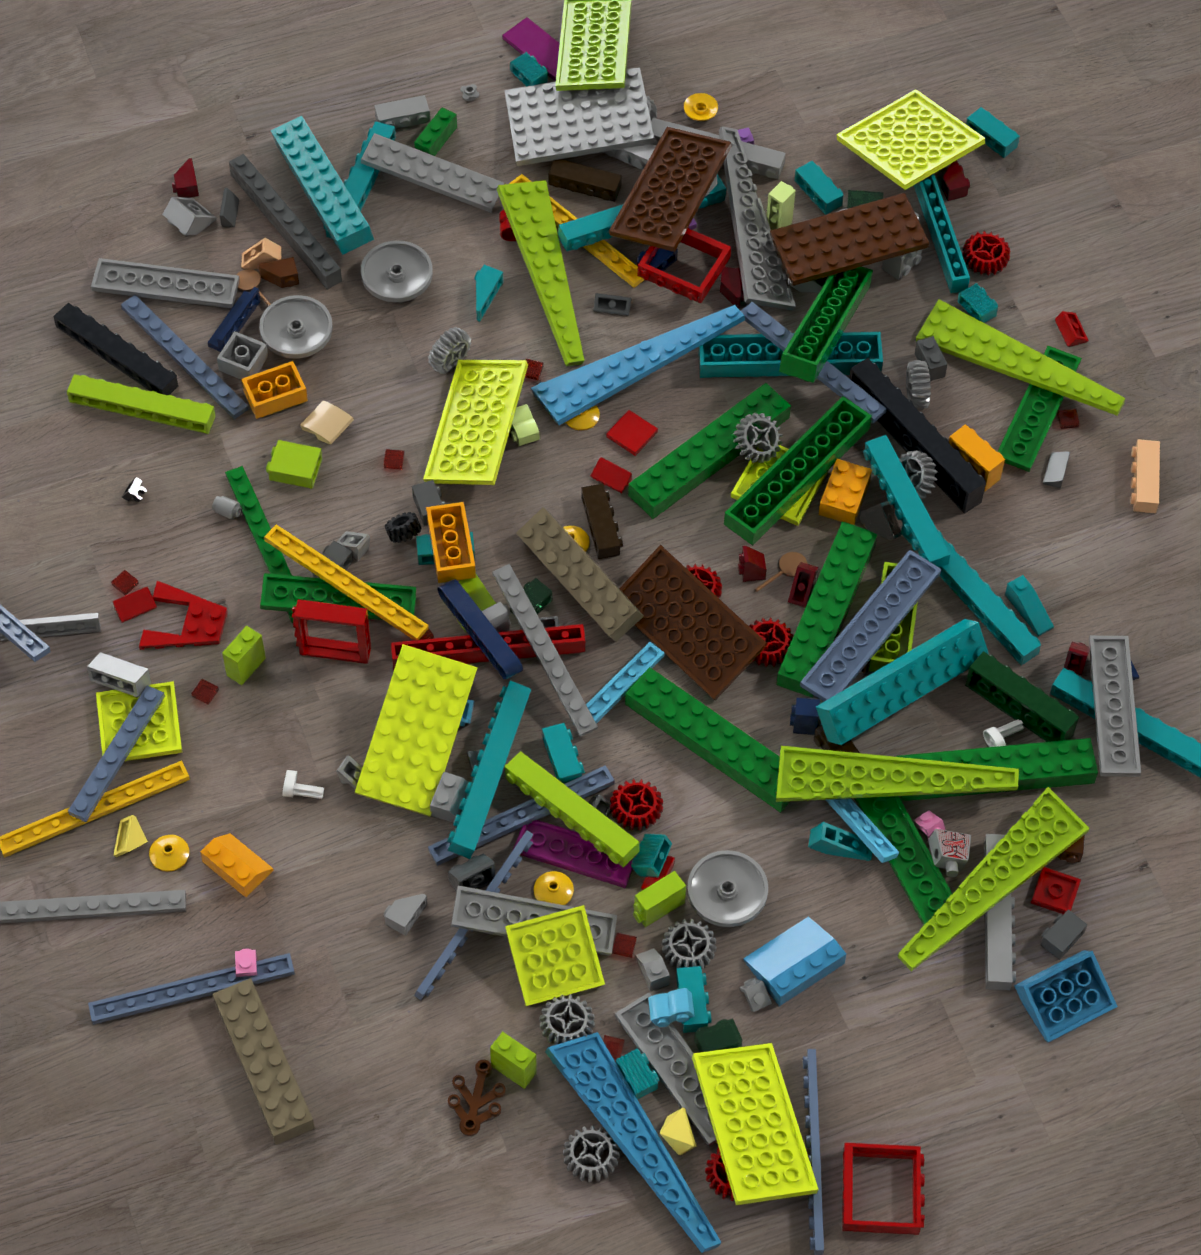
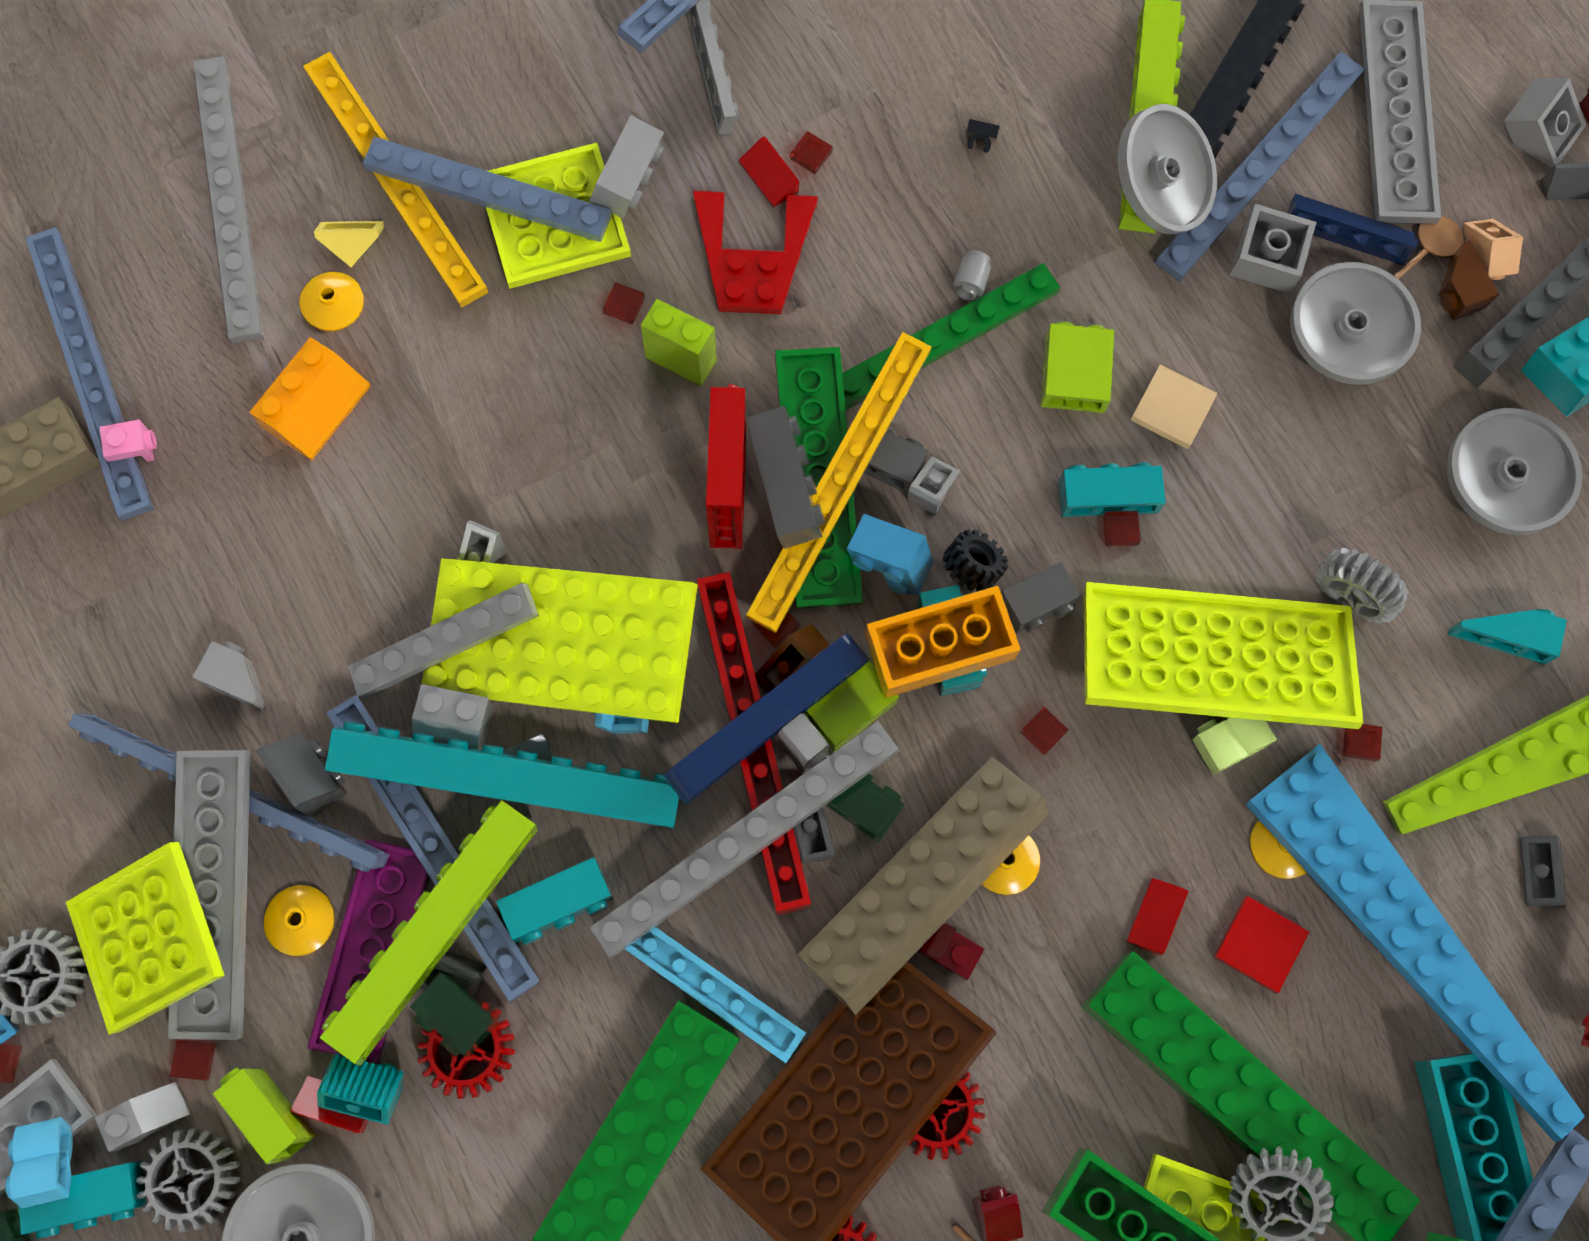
camera: 80 degrees right, 15 degrees up
(189, 393) = (1167, 169): none -> light grey dish
(274, 389) = (1217, 309): light orange brick -> none
(292, 788) = (453, 461): white piece -> none
(366, 597) = (785, 478): none -> dark grey brick
(371, 459) = (1111, 489): none -> teal brick
(393, 564) = (894, 551): none -> dark azure brick
(406, 792) = (443, 640): none -> light grey plate
(443, 621) = (791, 656): none -> reddish brown slope
(503, 513) = (1044, 731): none -> clear red tile
(601, 521) = (1052, 909): dark brown brick -> none
(617, 569) = (952, 951): none -> dark red slope
(619, 797) = (453, 1016): none -> clear green brick

